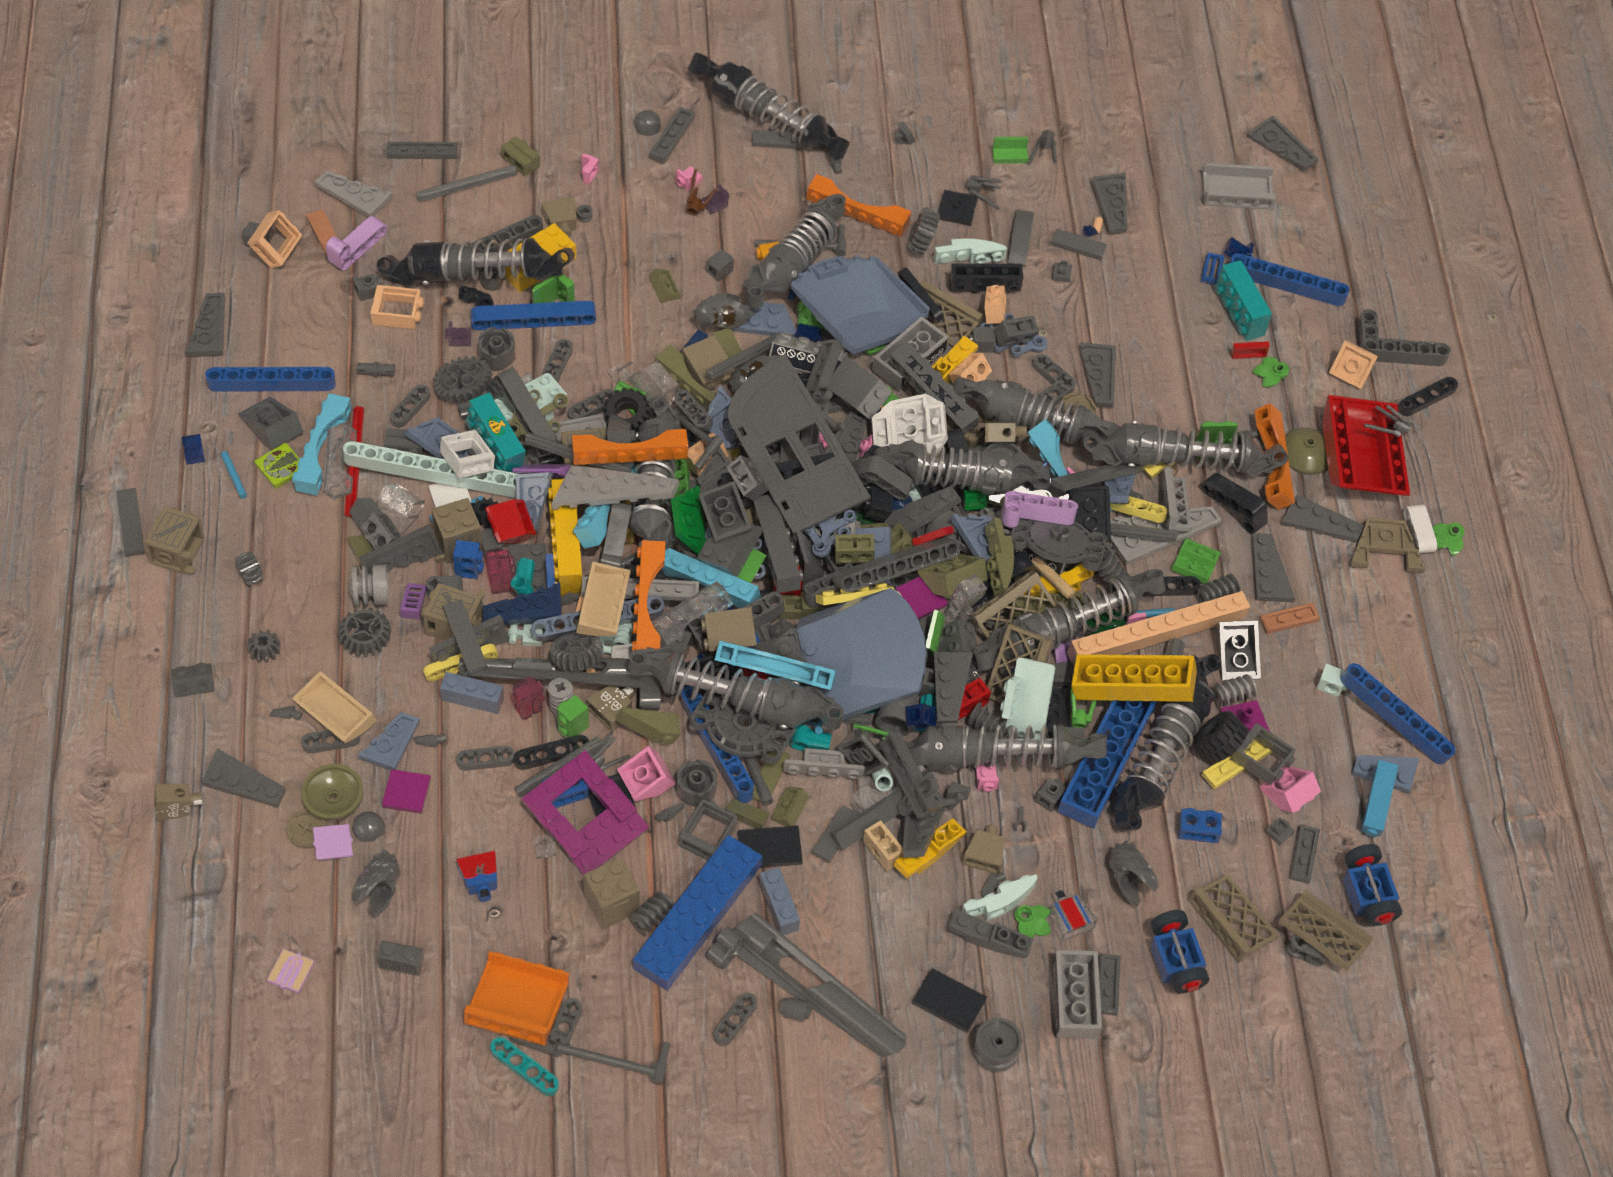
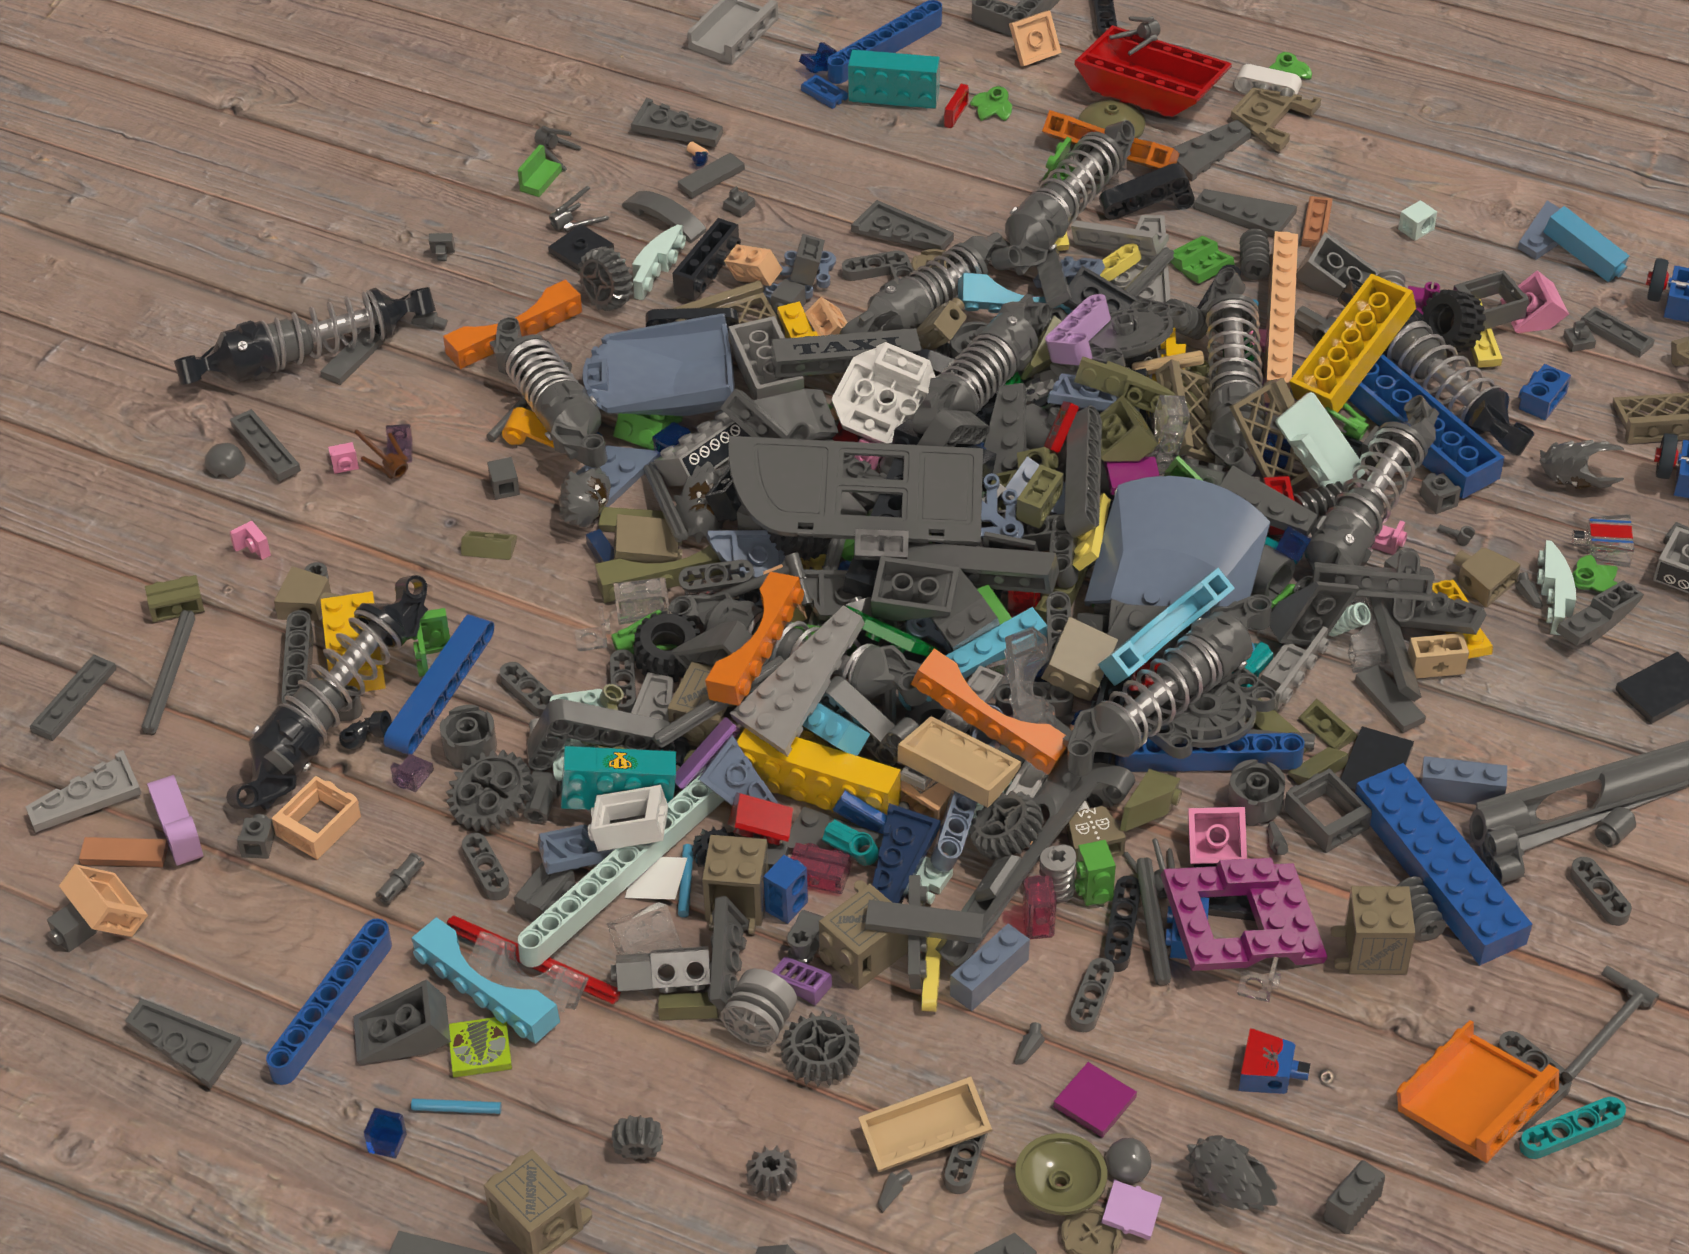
camera: 55 degrees left, 10 degrees down
(392, 743) = (1013, 1085): sand blue wing -> none
(1388, 705) = (1492, 187): blue beam -> none

